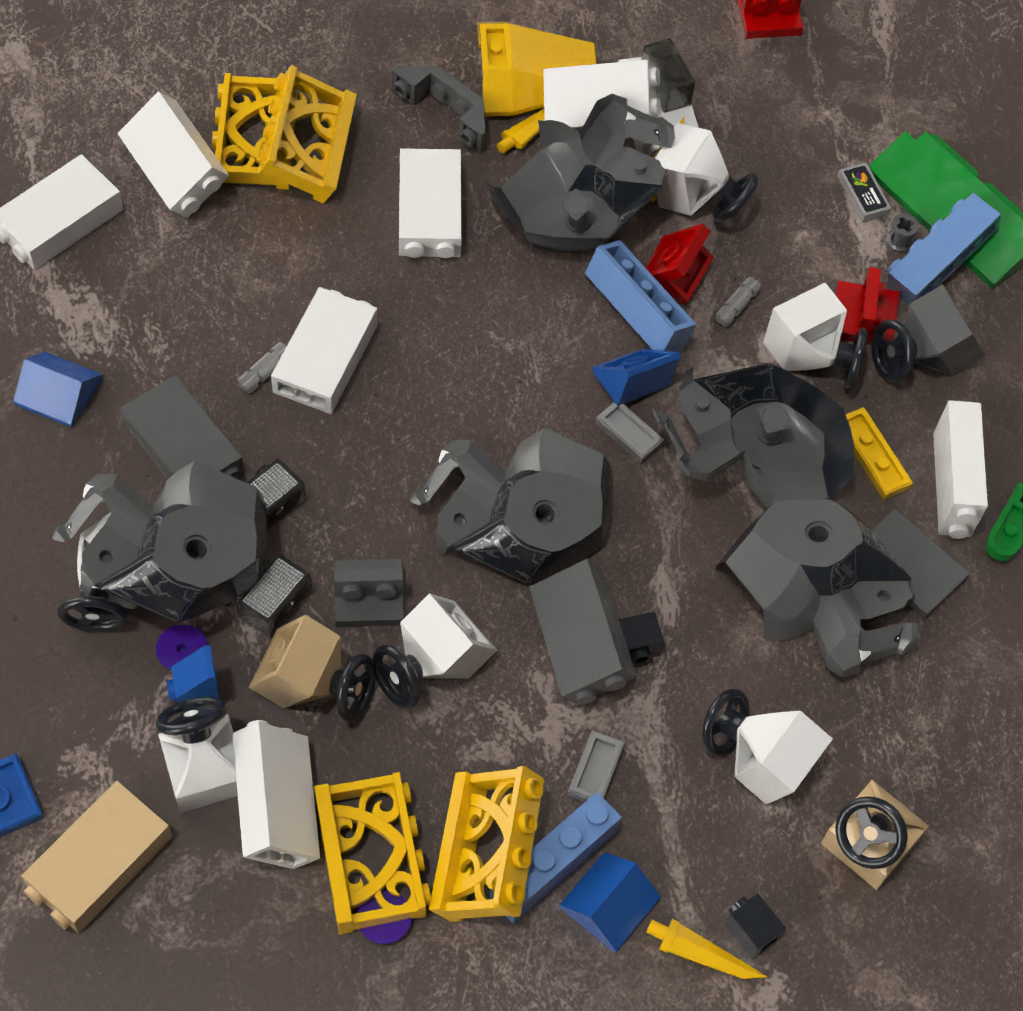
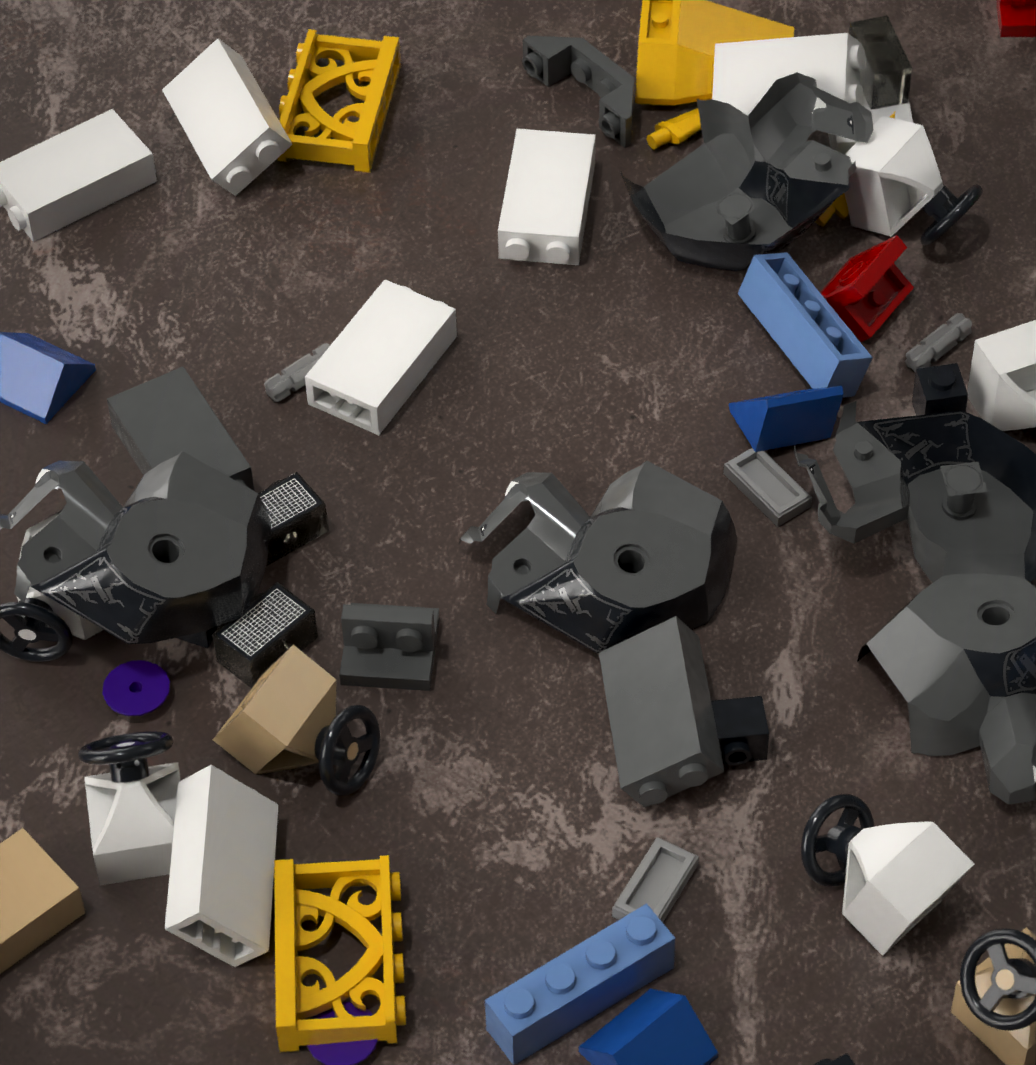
camera: 15 degrees right, 10 degrees down
(194, 677) = (147, 710): blue slope -> none
(337, 113) = (442, 81): yellow fence -> none
(437, 645) = (465, 712): white piece -> none
(509, 866) = (530, 902): yellow fence -> none
(746, 347) = (939, 390): none -> black brick

